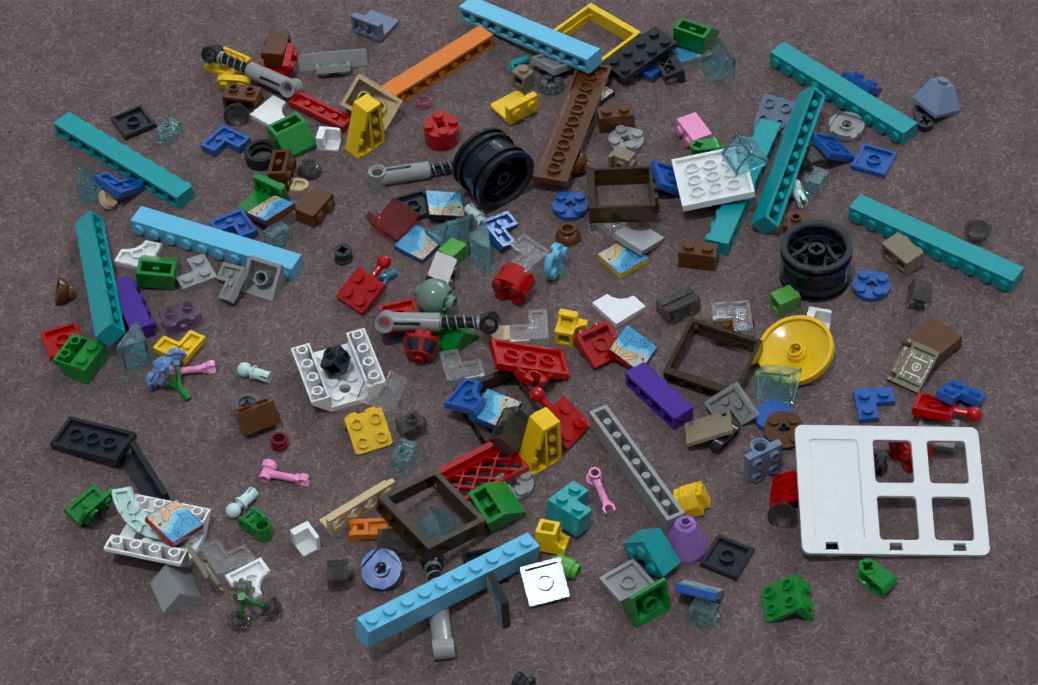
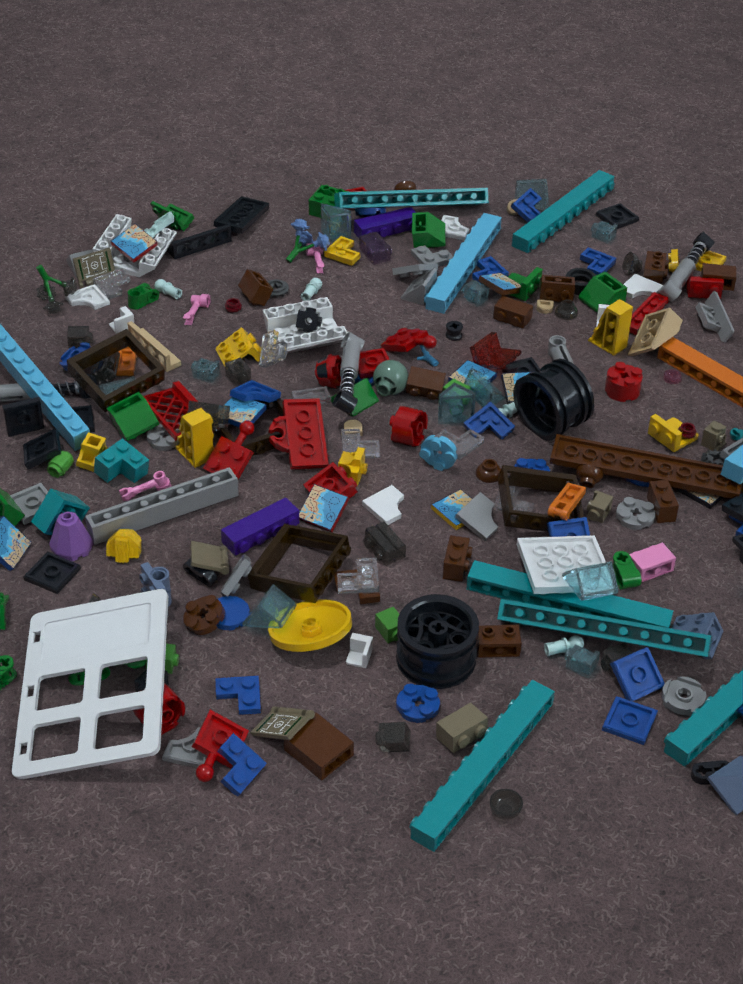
camera: 85 degrees right, 5 degrees down
(516, 92) = (688, 430): none -> dark red plate
(635, 169) = (566, 501): none -> orange plate

